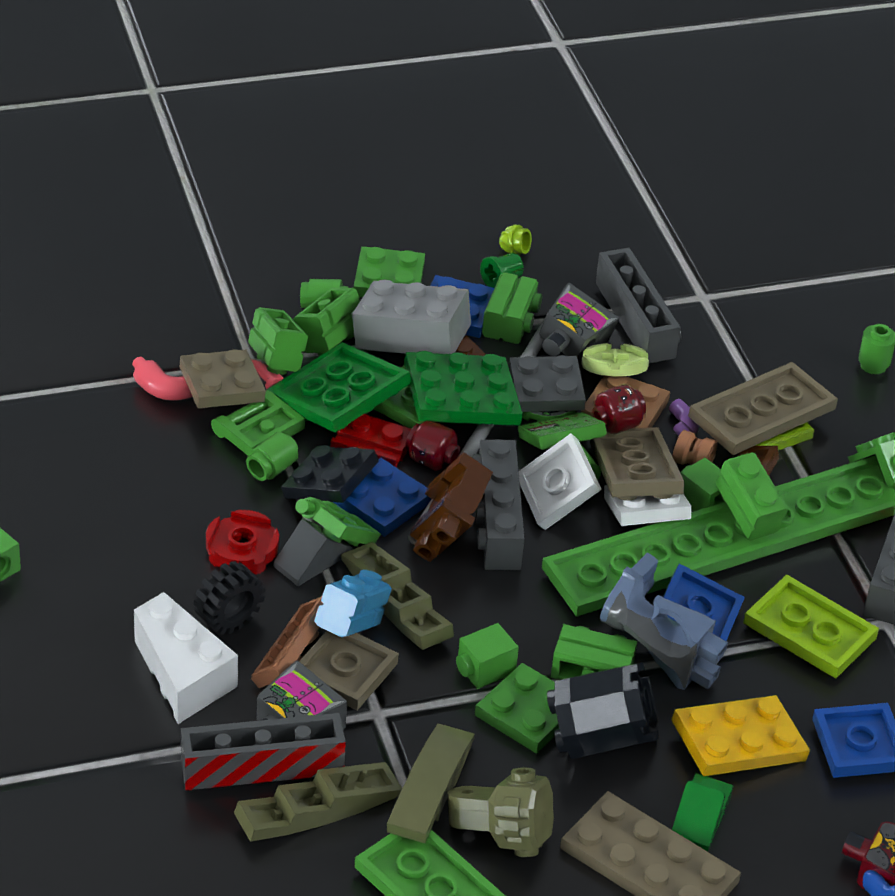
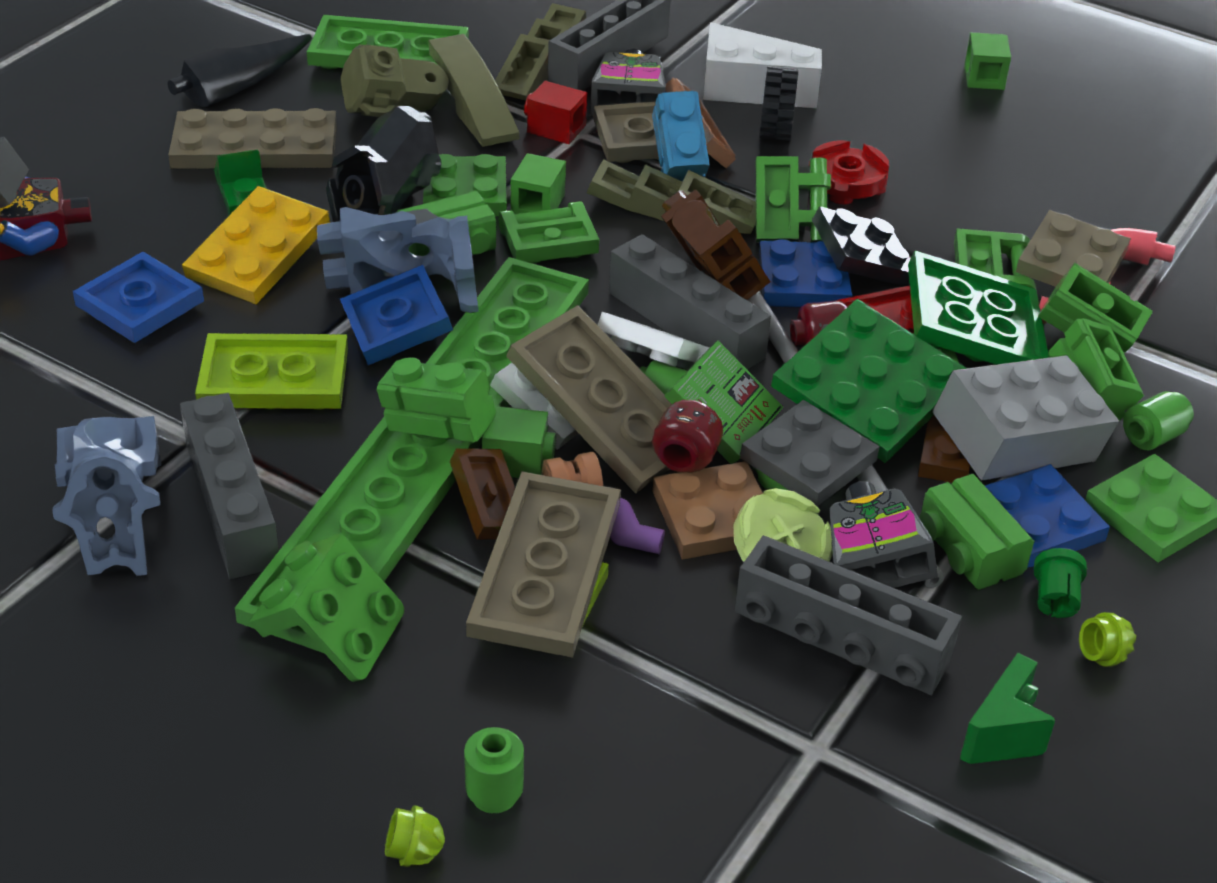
camera: 140 degrees right, 0 degrees up
(272, 456) = (933, 234): bright green brick -> none
(390, 717) = (556, 112): none -> red brick
(524, 614) = (549, 233): none -> bright green plate
(612, 236) = (1007, 721): none -> green slope

